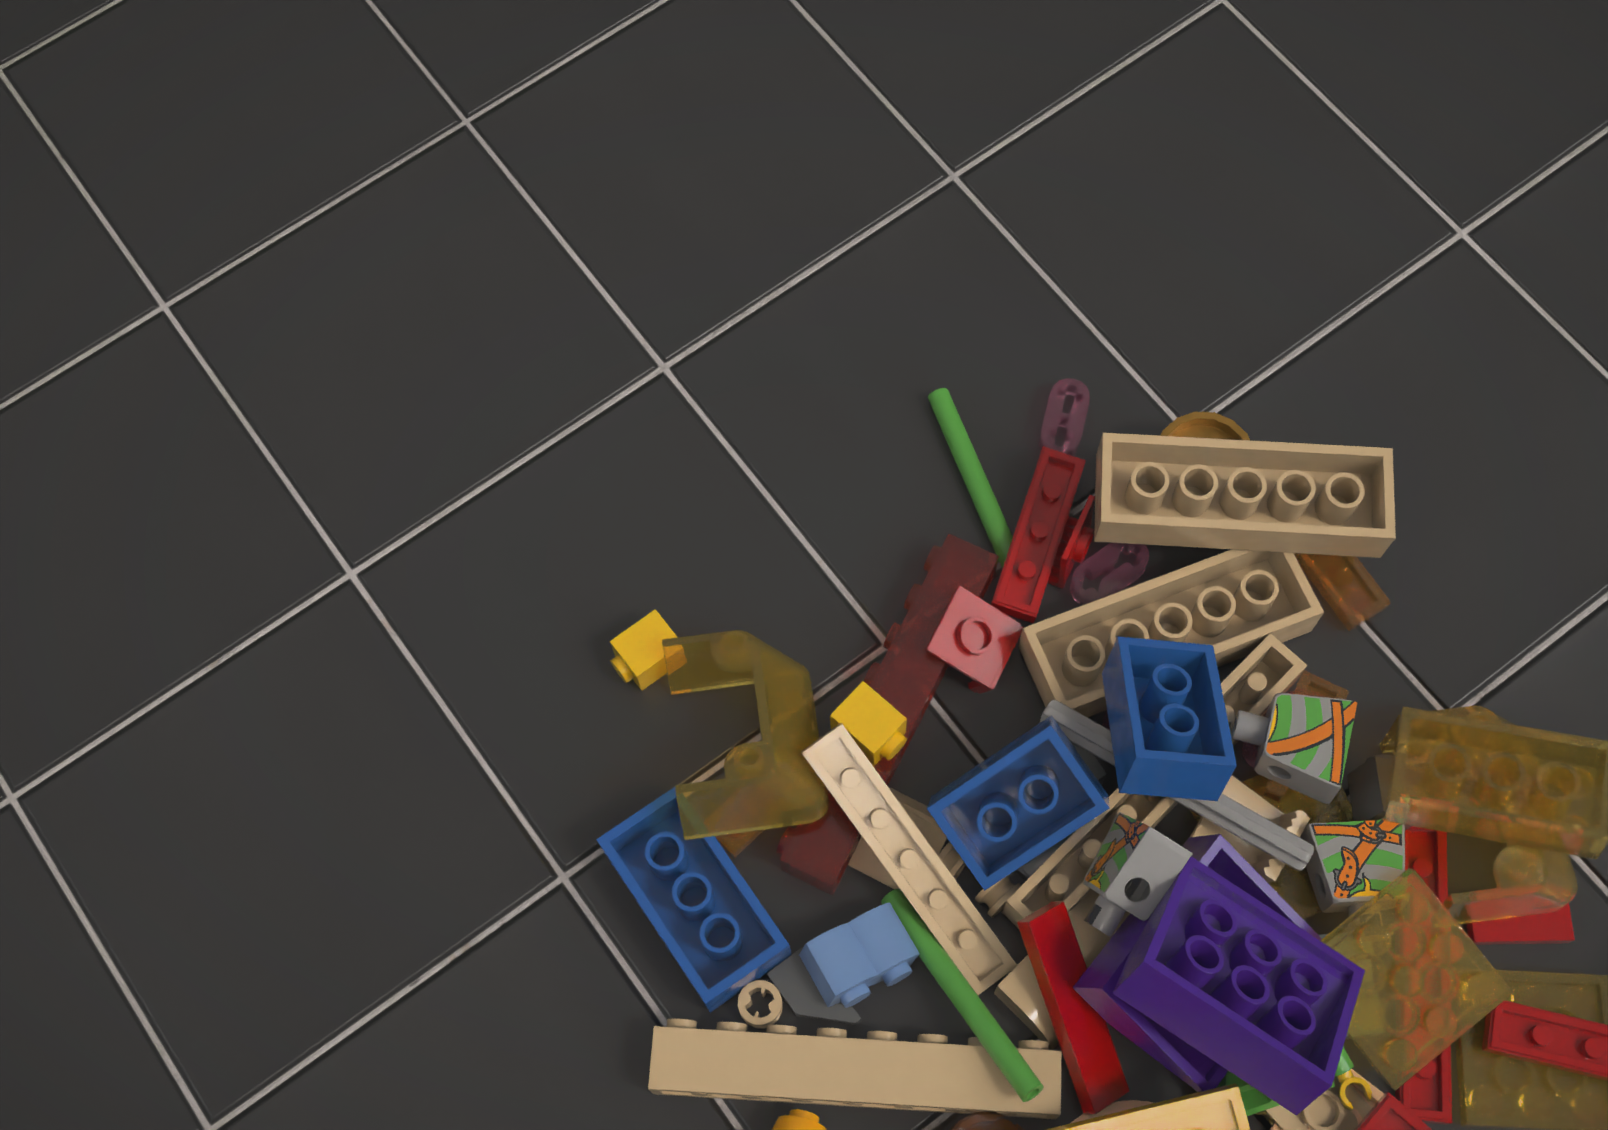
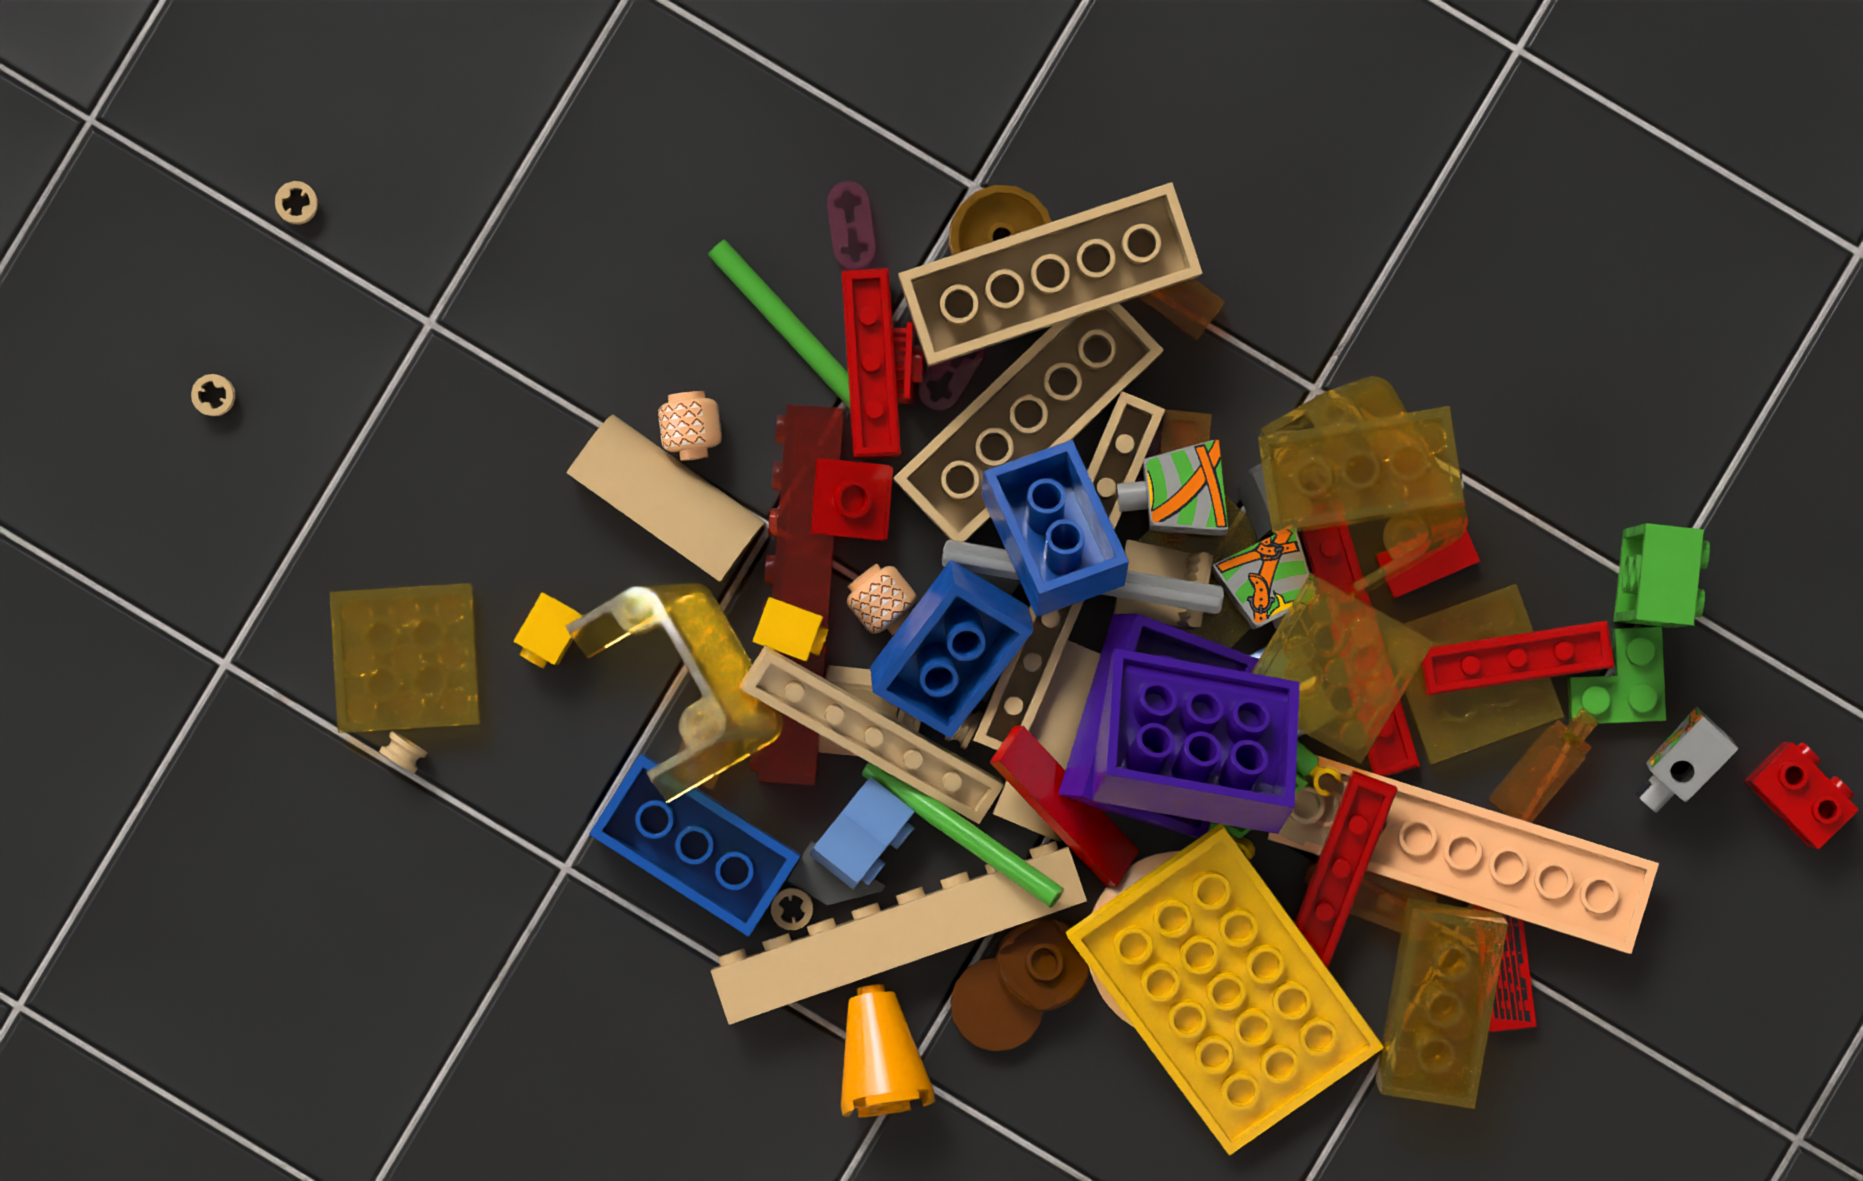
camera: 25 degrees left, 20 degrees up
(451, 340) = (206, 407): none -> tan bush
(465, 706) = (403, 752): none -> tan bush
(507, 626) = (405, 658): none -> clear yellow plate
(591, 225) = (284, 194): none -> tan bush
(802, 581) = (666, 497): none -> tan brick
(852, 523) = (690, 424): none -> light nougat head
(964, 739) = (881, 599): none -> light nougat head
(1131, 872) = (1072, 676): light grey torso -> none

